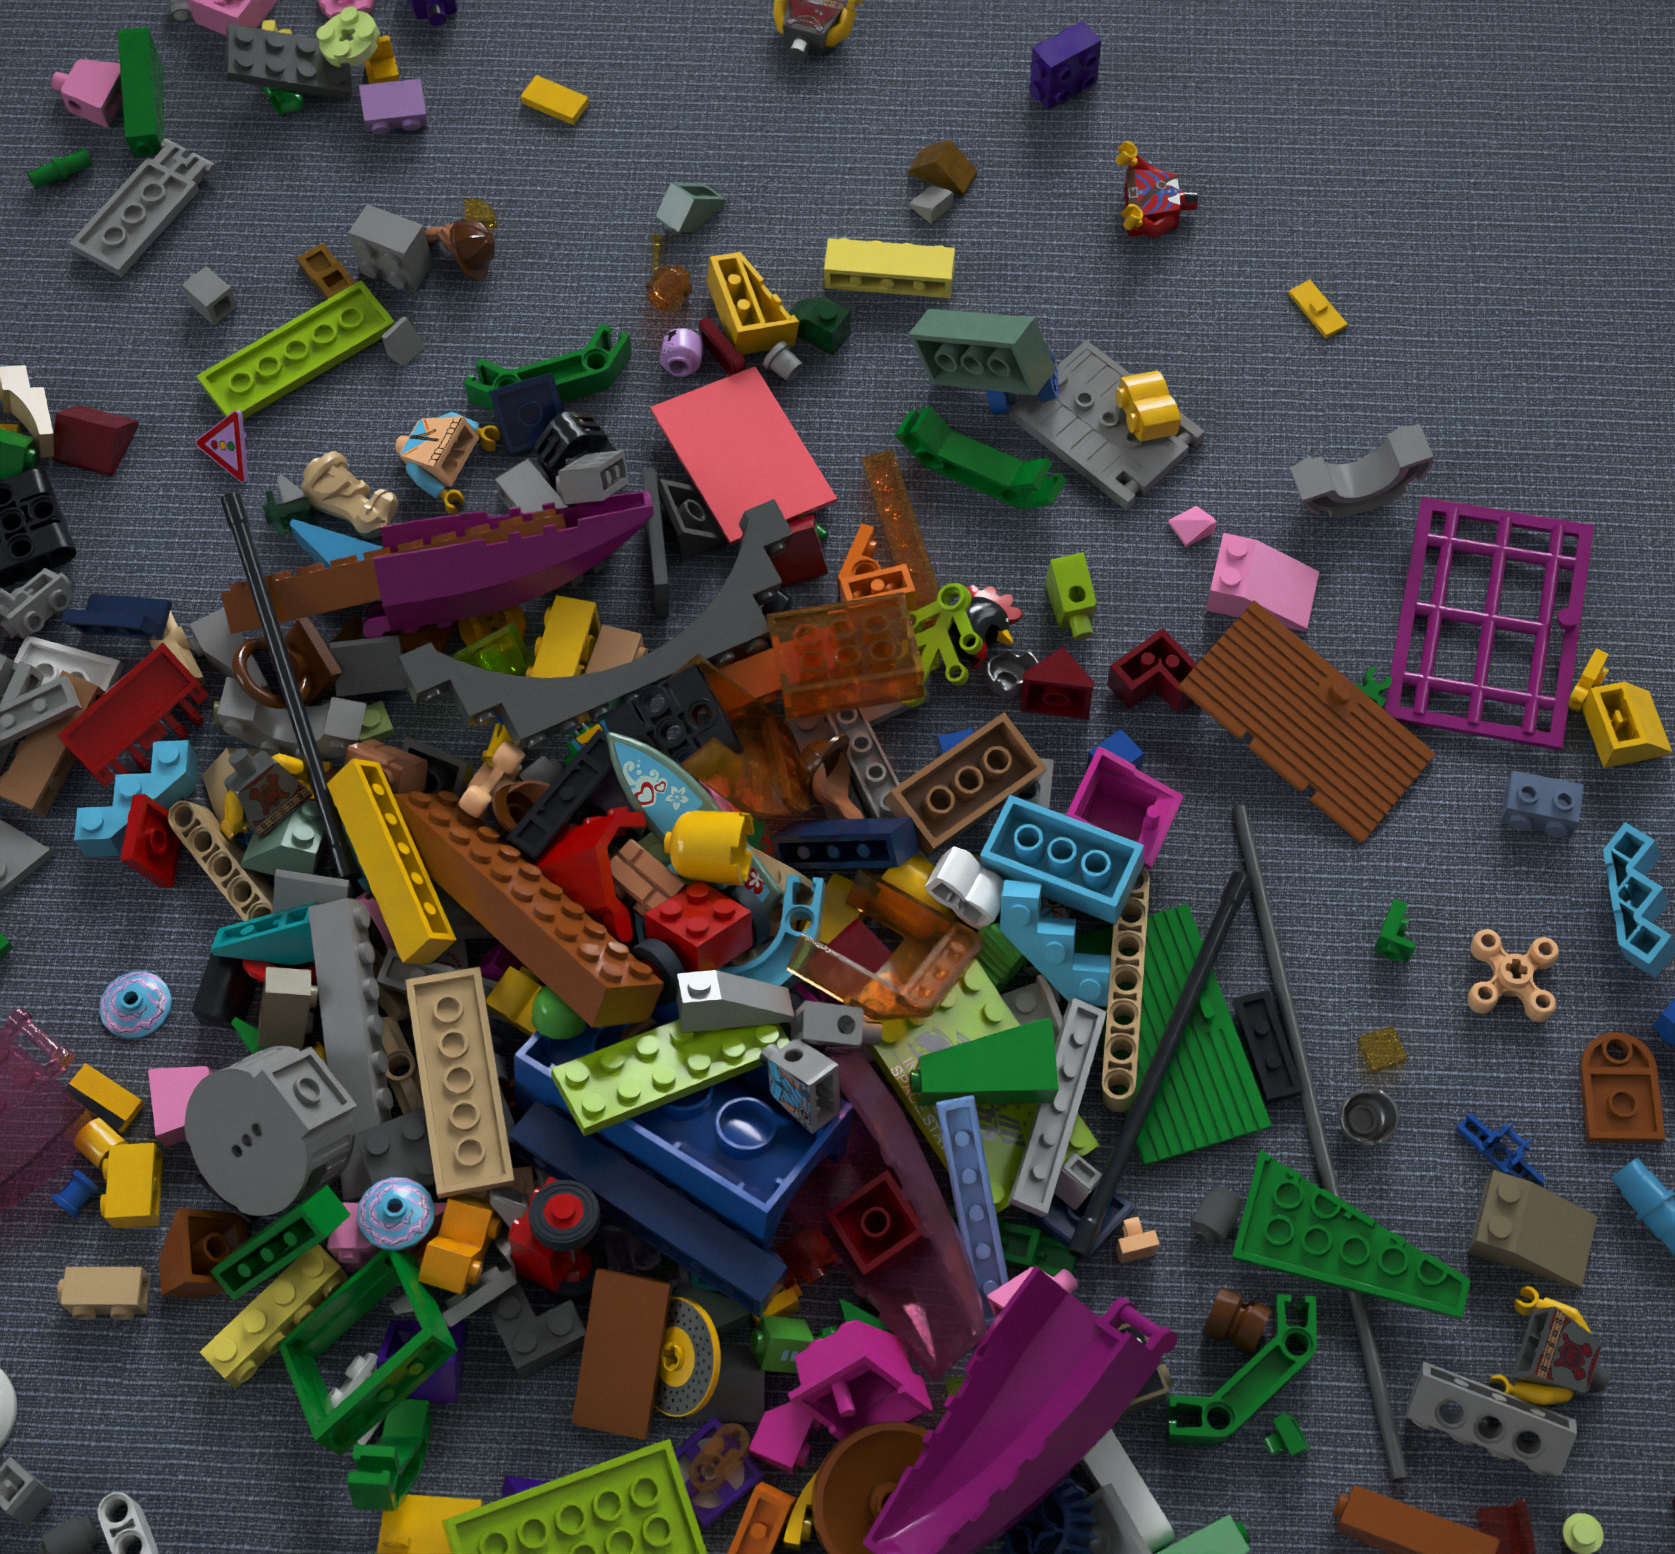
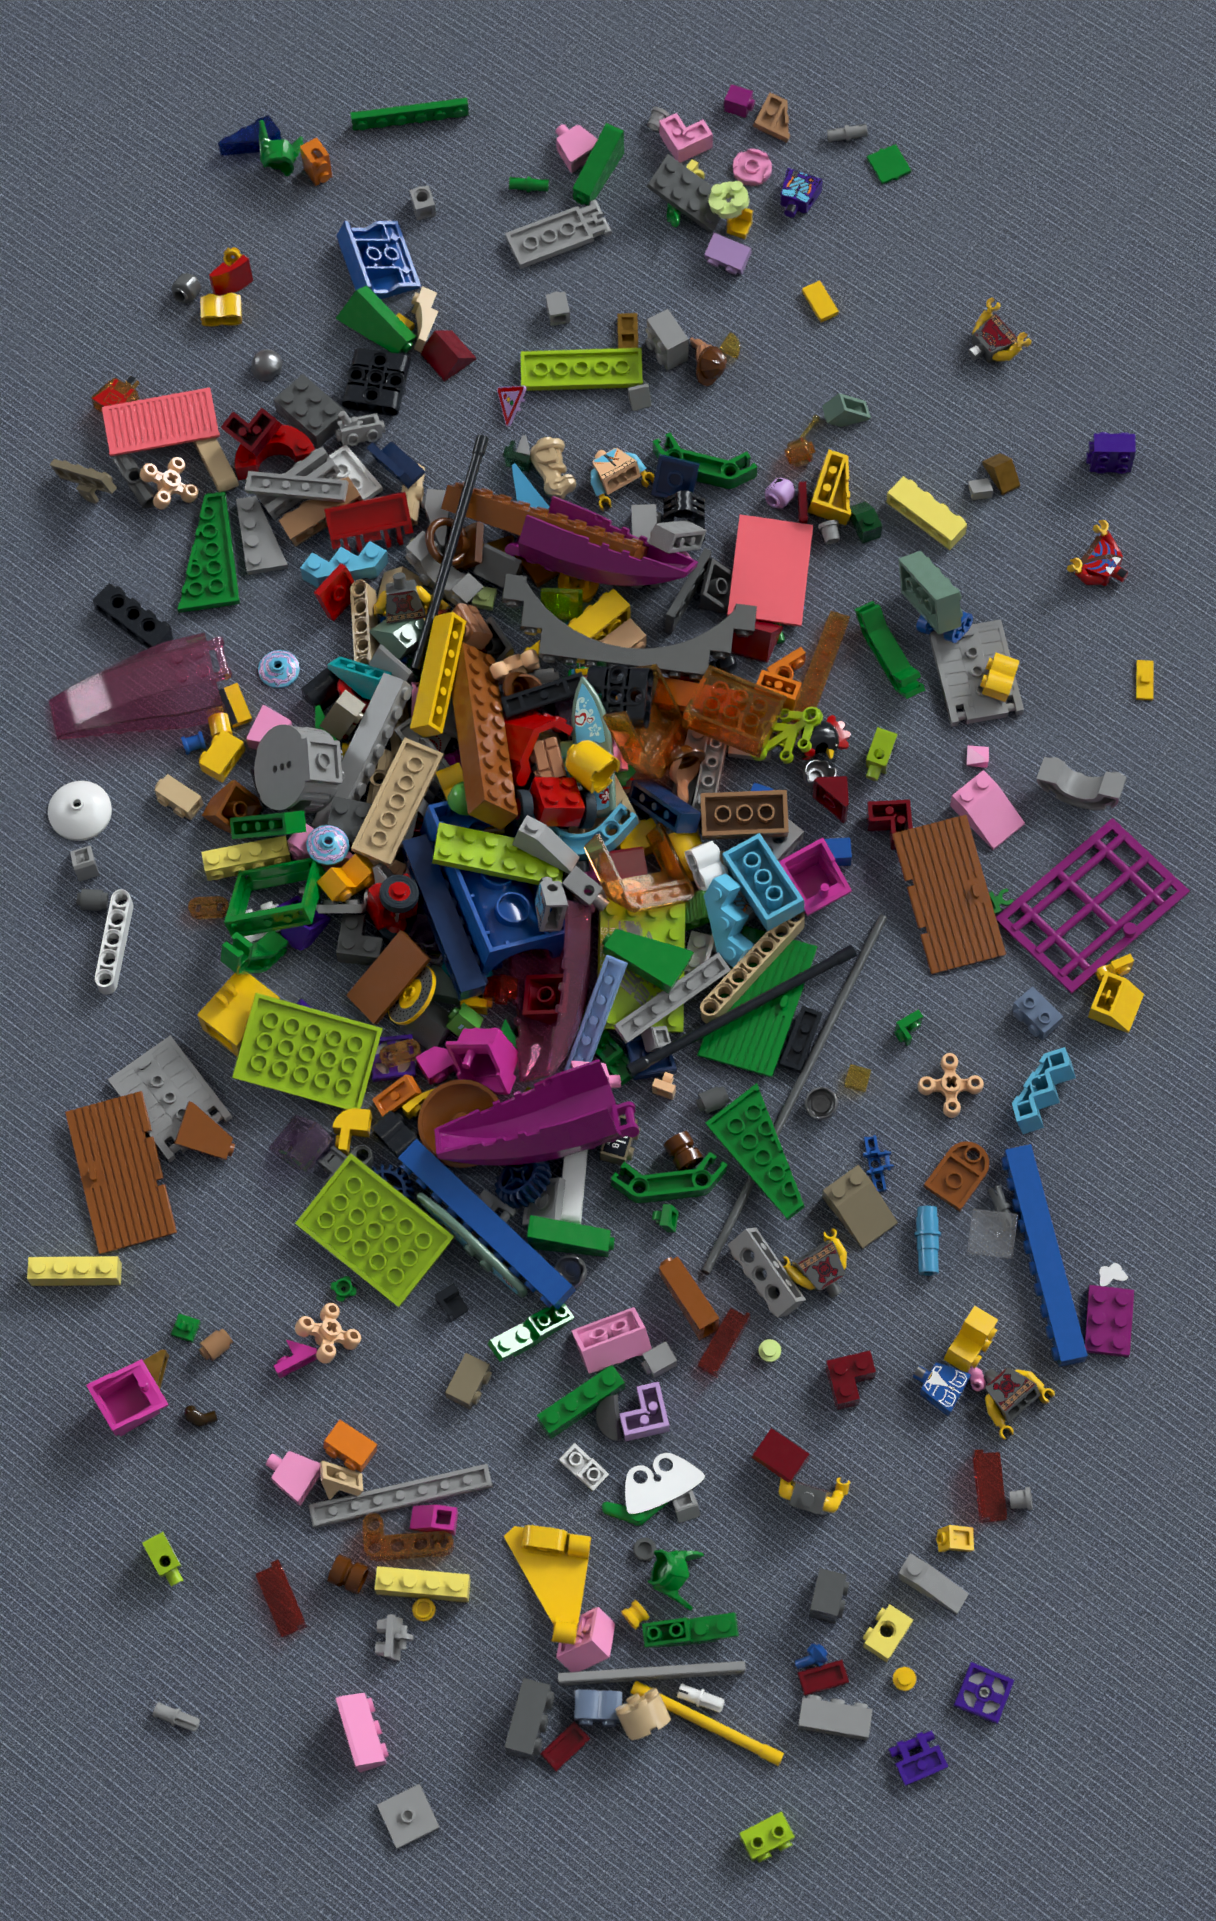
camera: 35 degrees right, 5 degrees up
(259, 1422) = (208, 907): none -> clear orange beam

